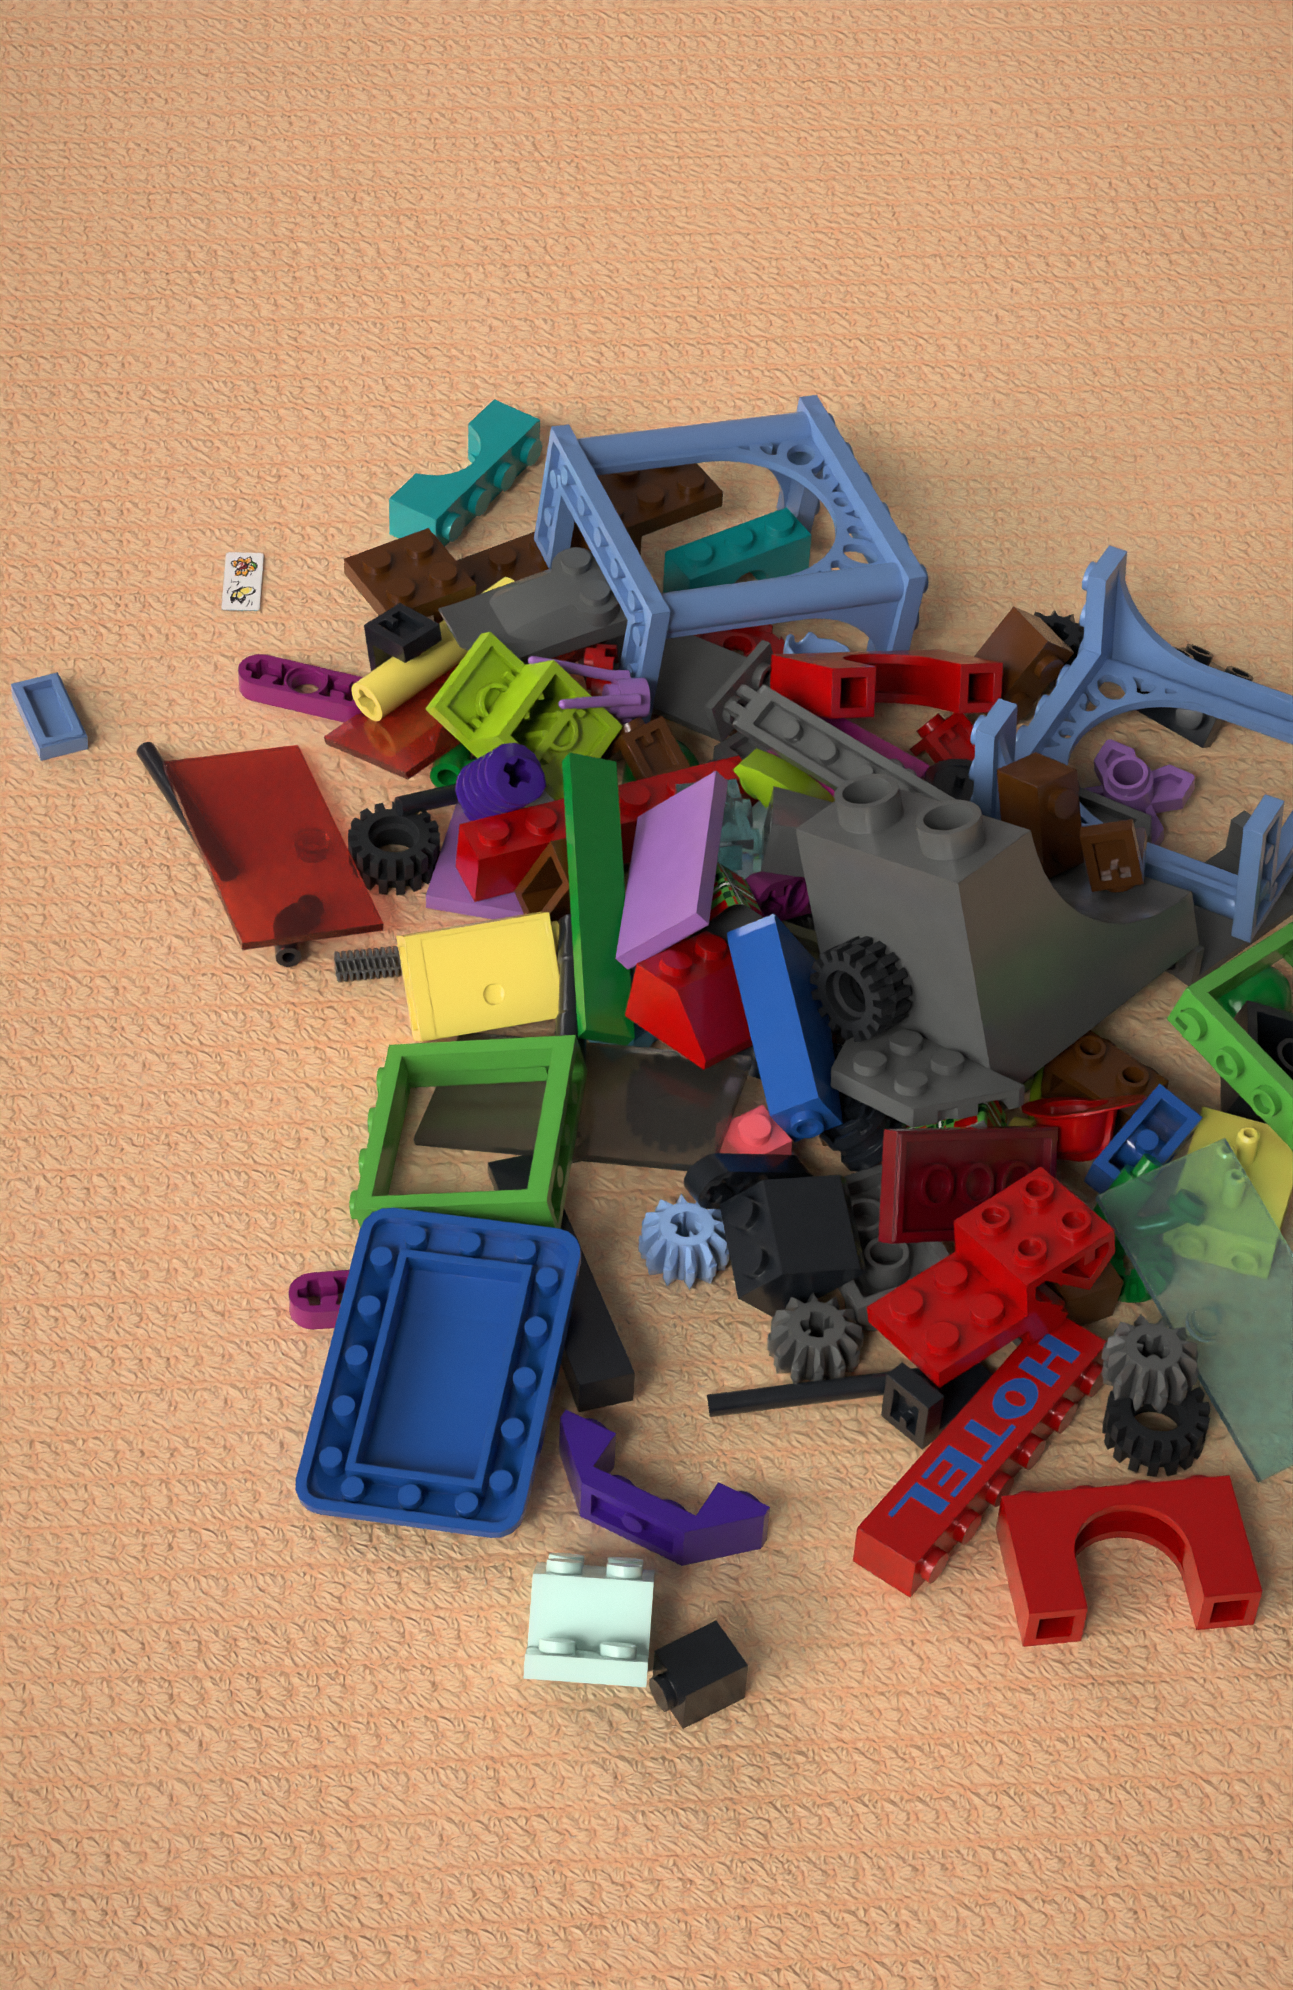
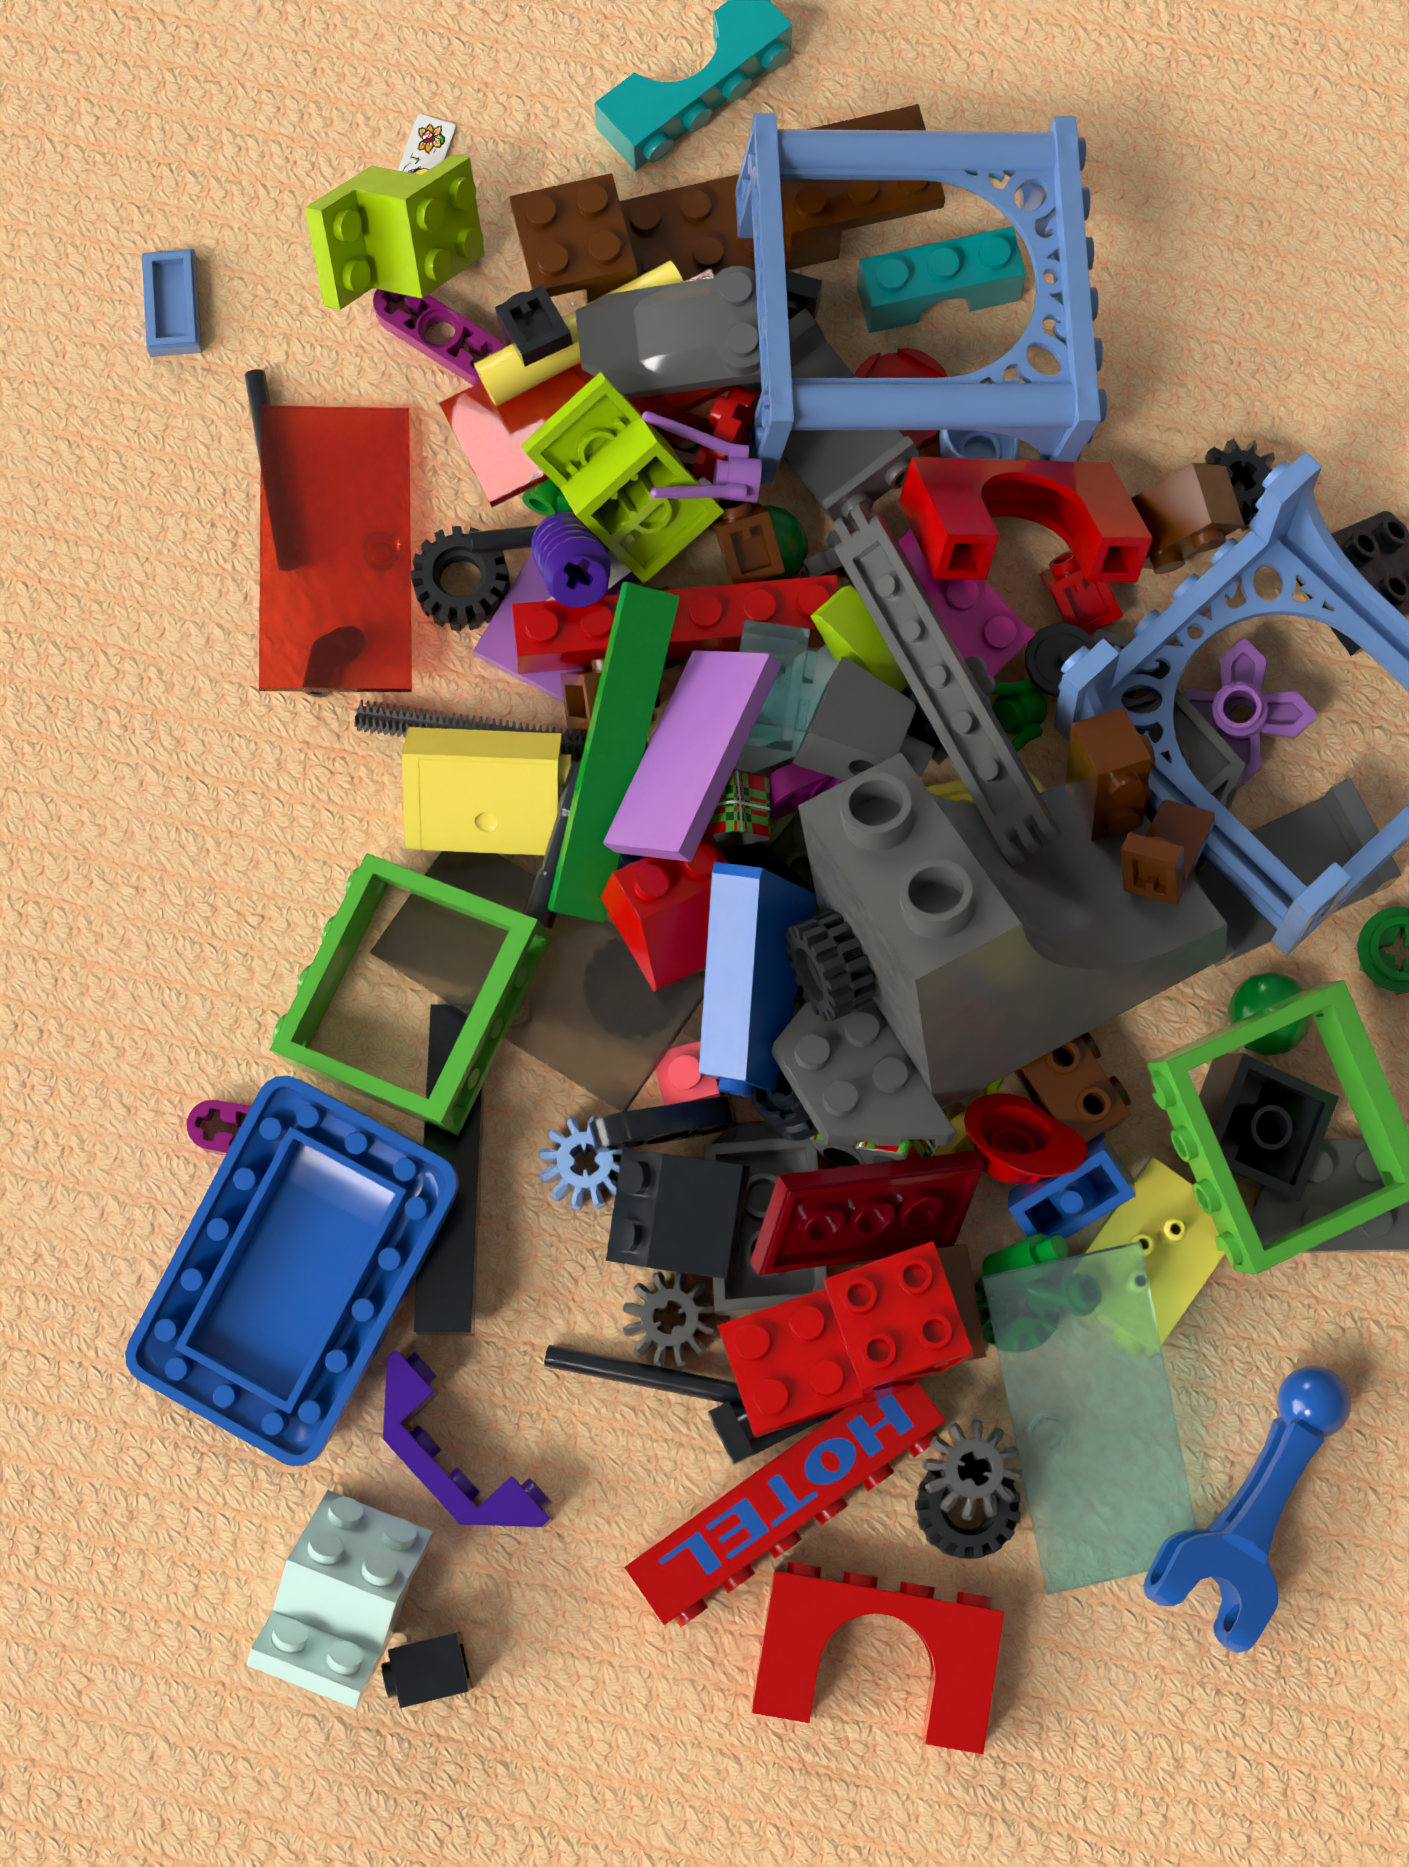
camera: 20 degrees right, 30 degrees up
(250, 605) = (395, 231): none -> lime bracket

